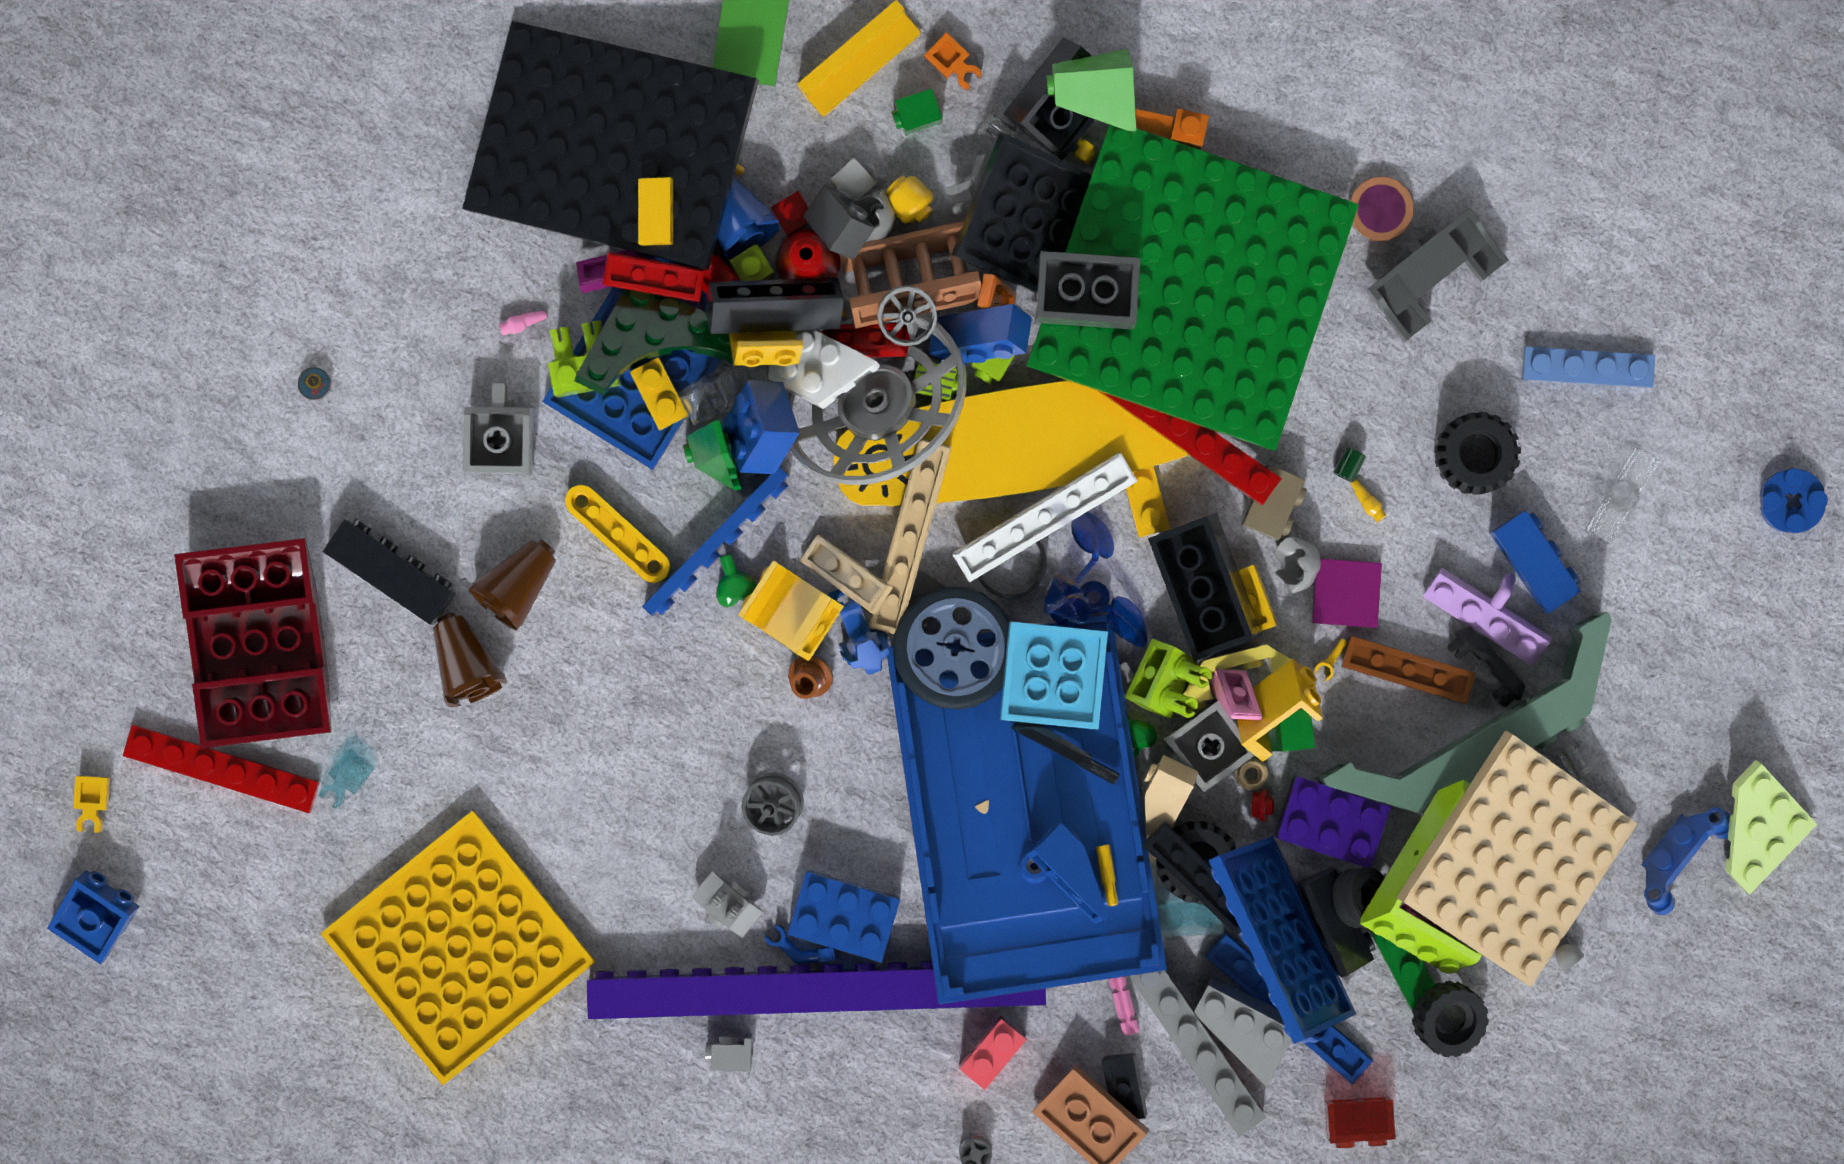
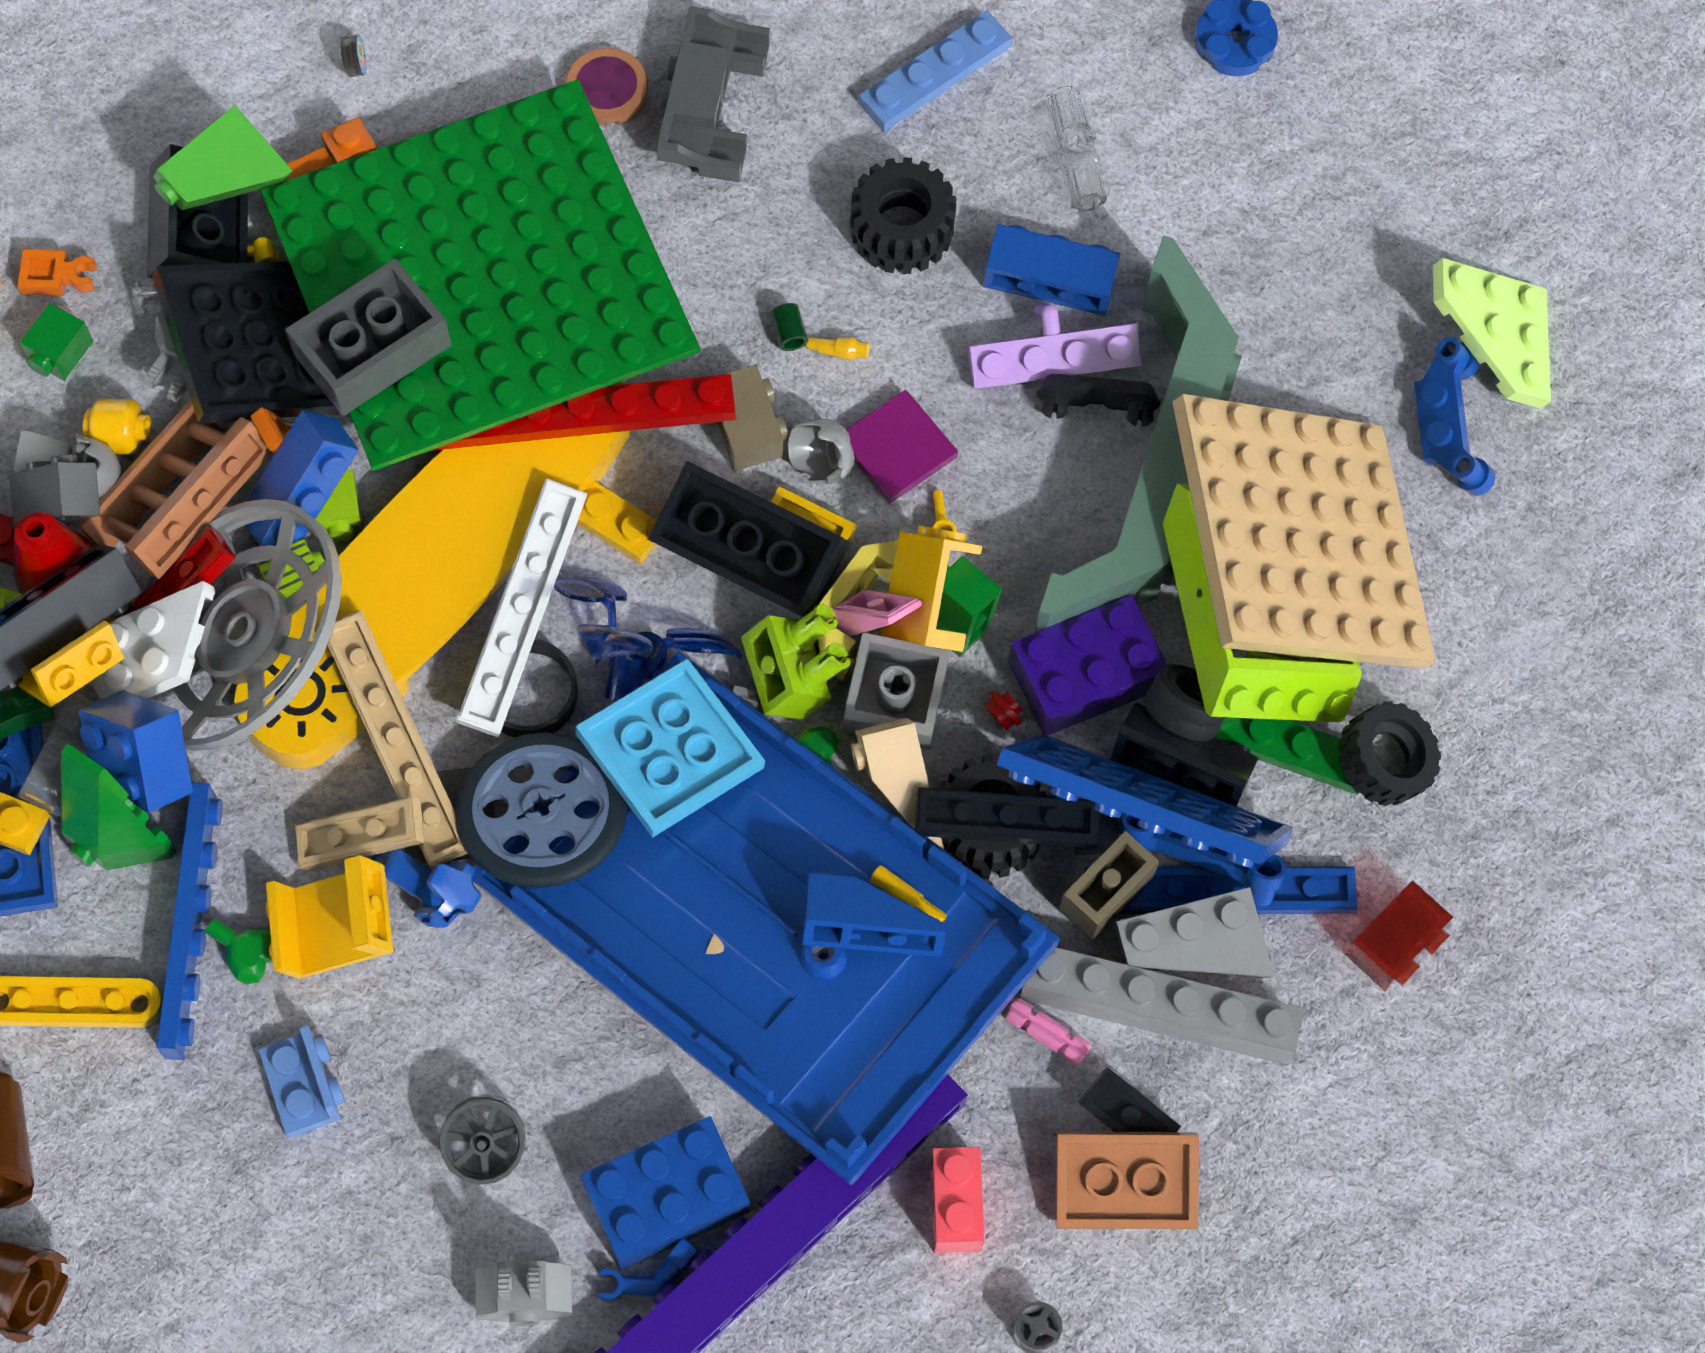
camera: 45 degrees left, 20 degrees down
(704, 685) = (300, 1082): none -> medium blue bracket
(810, 677) = (411, 975): dark orange piece -> none
(907, 315) = (198, 507): light grey wheel -> none
(1059, 745) = (741, 813): black piece -> none
(1187, 920) = (1041, 879): clear light blue plate -> none
(1221, 961) = (1108, 885): none -> dark tan brick
(1245, 60) = (353, 55): none -> clear smoke tile
(1260, 779) = (964, 679): tan plate -> none
(1408, 669) = (1025, 465): dark orange plate -> none
(1568, 955) = (1441, 601): light grey hinge -> none

